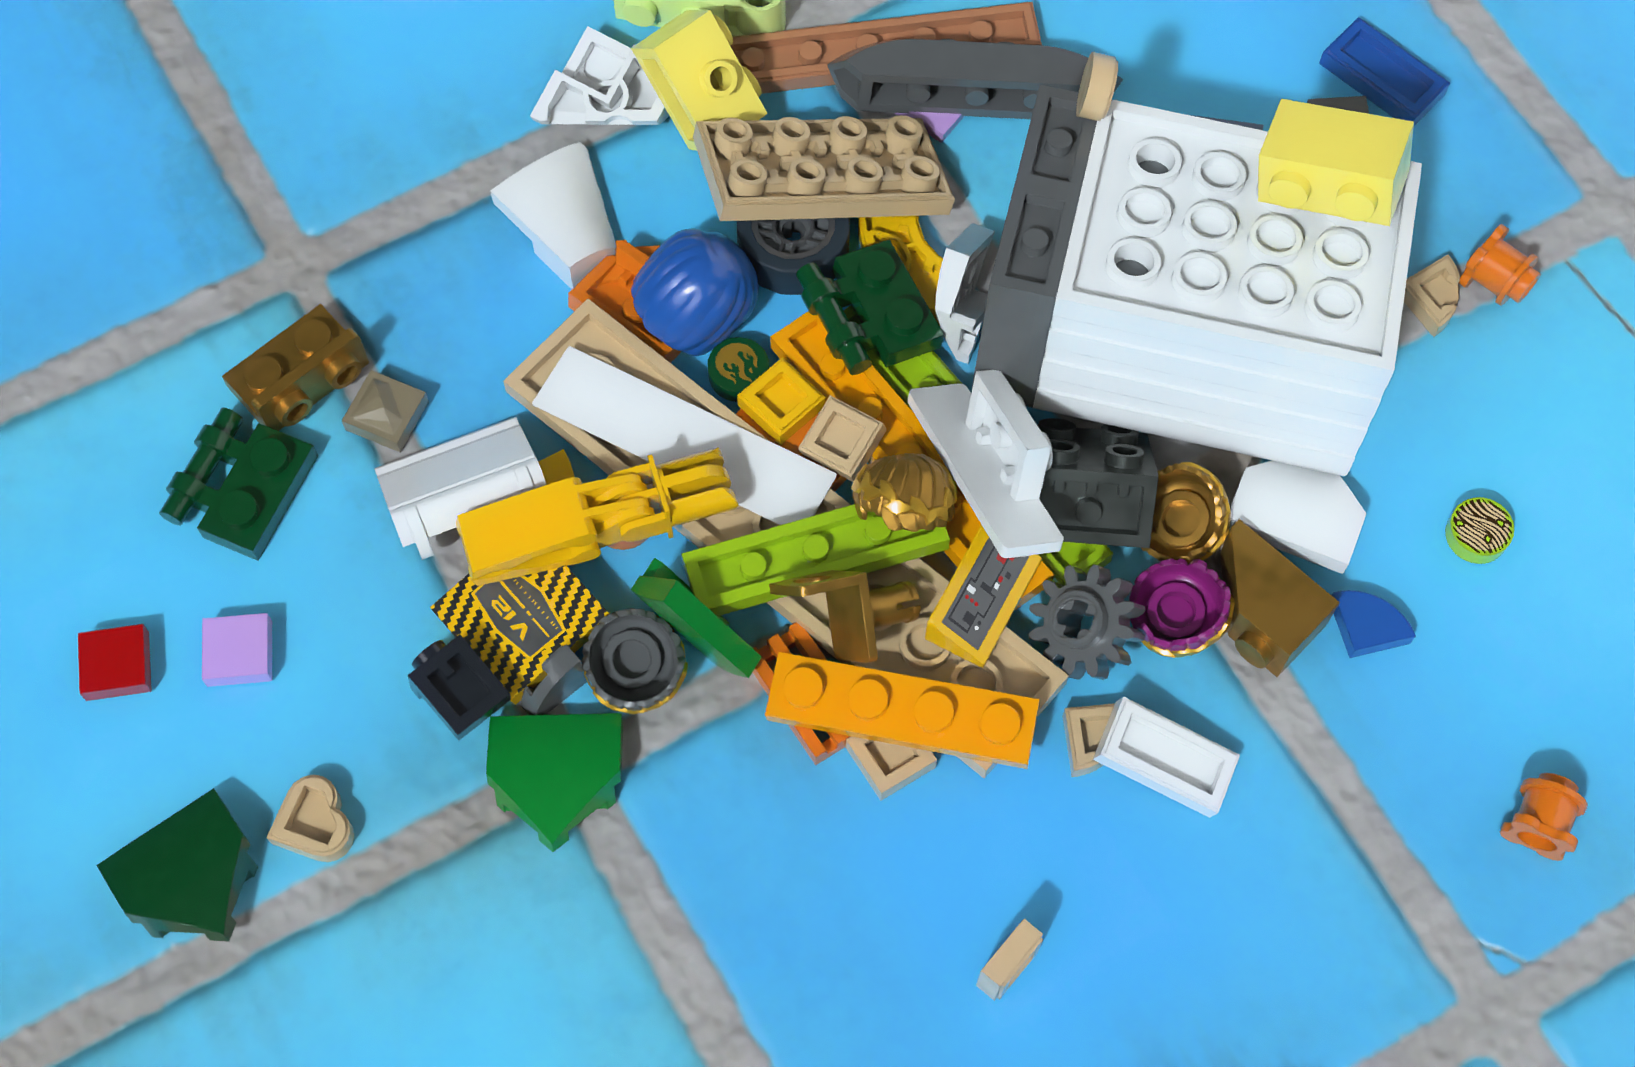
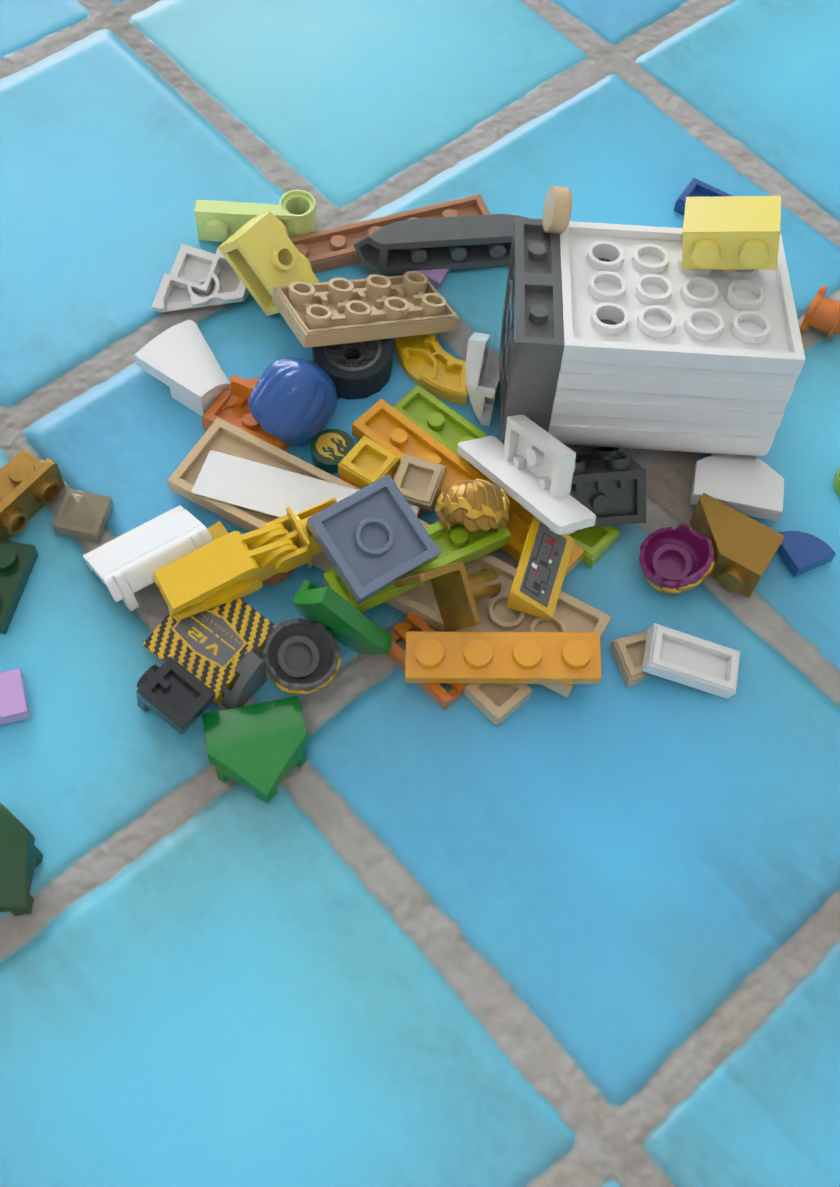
camera: 15 degrees left, 5 degrees down
(312, 821) = (80, 813): tan tile -> none
(754, 519) = (373, 538): none -> sand blue plate
(885, 301) = (425, 387): dark green plate -> none
(1010, 960) = (619, 820): tan tile -> none
(1088, 596) = (607, 565): dark grey gear -> none
(1189, 514) = (669, 496): pearl gold hair -> none

